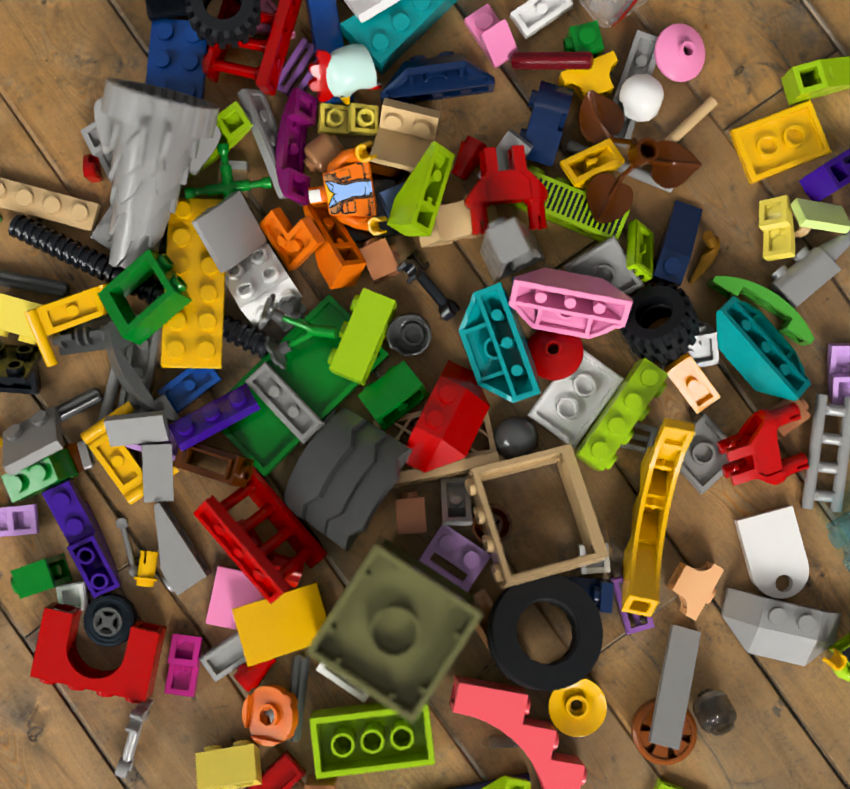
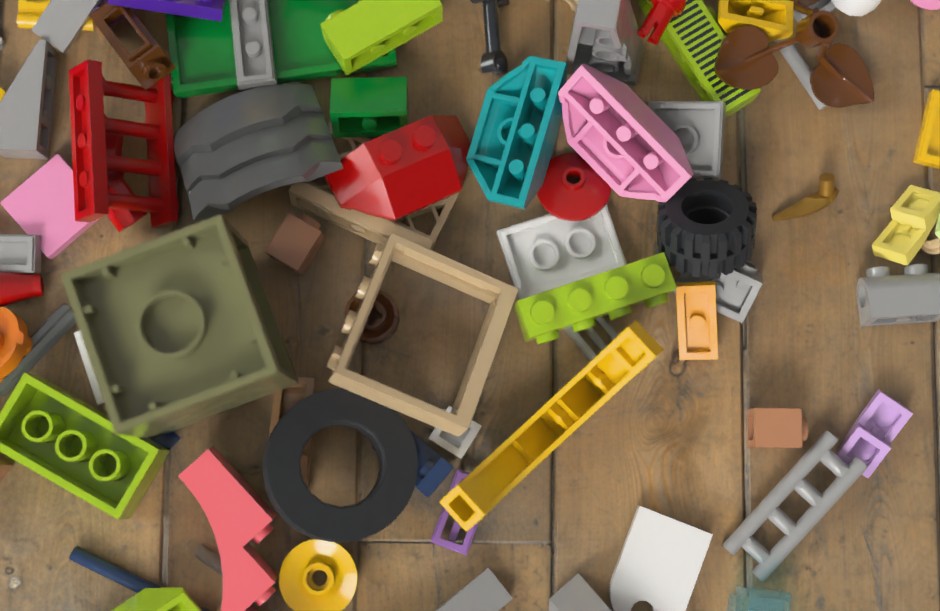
camera: 40 degrees right, 5 degrees down
(281, 627) = (58, 243): yellow tile -> none
(409, 334) = (432, 56): dark grey hair -> none
(455, 502) = (348, 265): light grey slope -> none
(459, 552) = (316, 320): lavender plate -> none
(515, 437) = (467, 243): dark grey hair -> none
(640, 250) = (740, 134): lime tile -> none
(676, 244) = (787, 164): dark blue slope -> none
(692, 120) = (898, 51): tan piece -> none
(695, 586) = (541, 542): light nougat brick -> none
(702, 459) = (656, 409): light grey tile -> none
(756, 448) = (719, 443): red connector -> none
(759, 351) = (795, 336): teal wedge -> none
(793, 326) = (843, 290): bright green slope -> none

